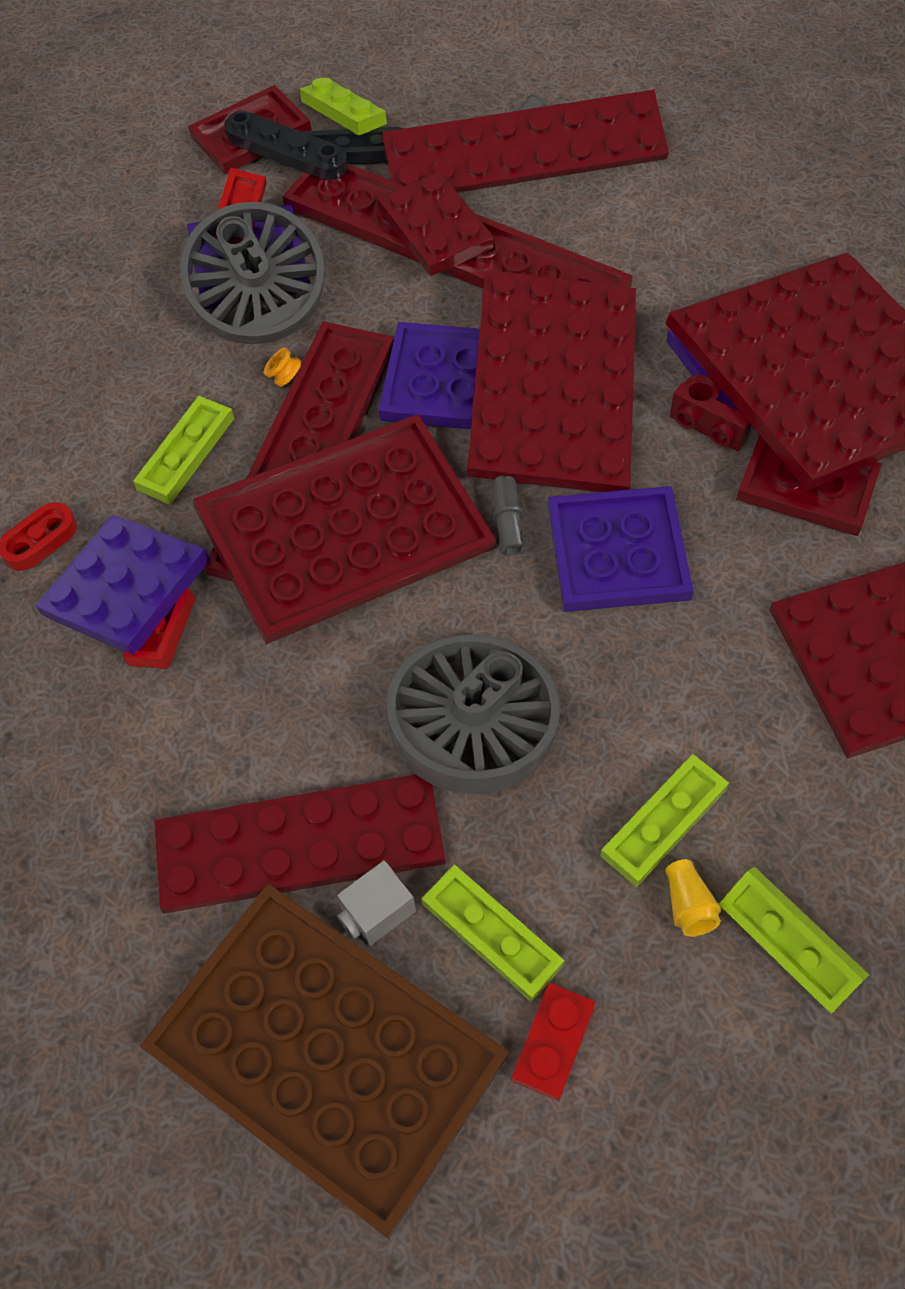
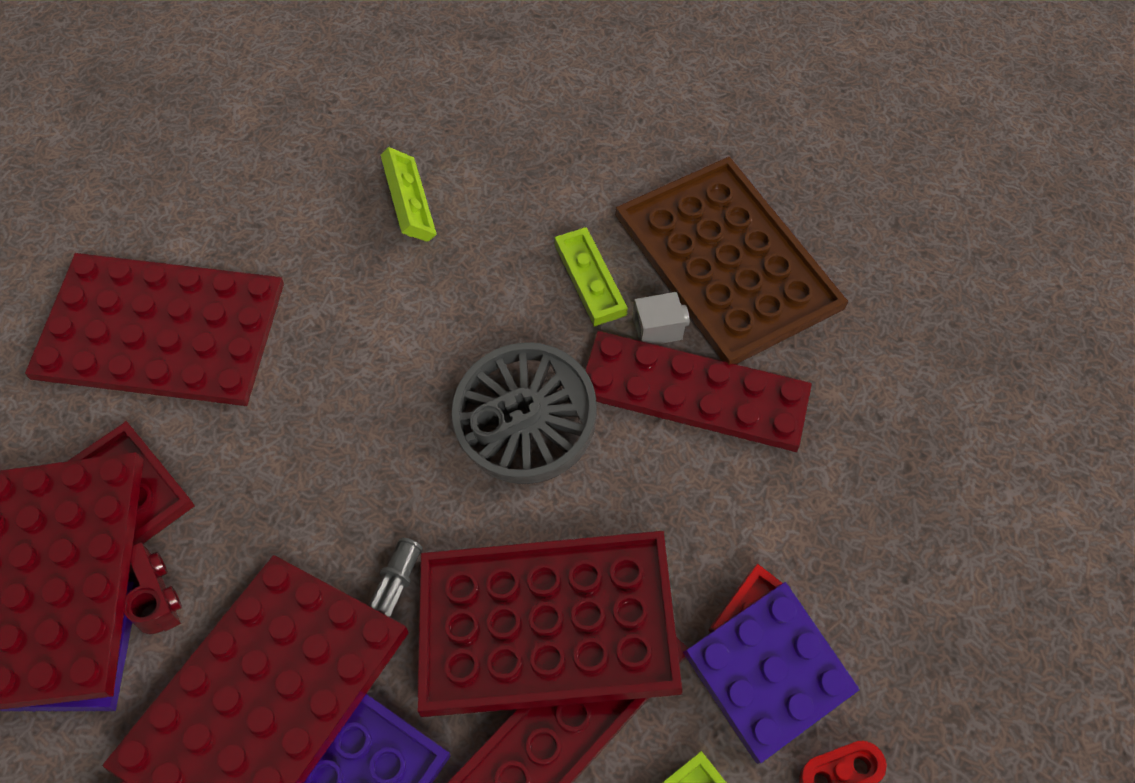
camera: 160 degrees left, 0 degrees up
(553, 1042) = (584, 209): red plate -> none
(619, 549) = (324, 503): dark purple plate -> none
(664, 820) = (435, 291): lime plate -> none
(691, 901) = (452, 239): yellow cone -> none

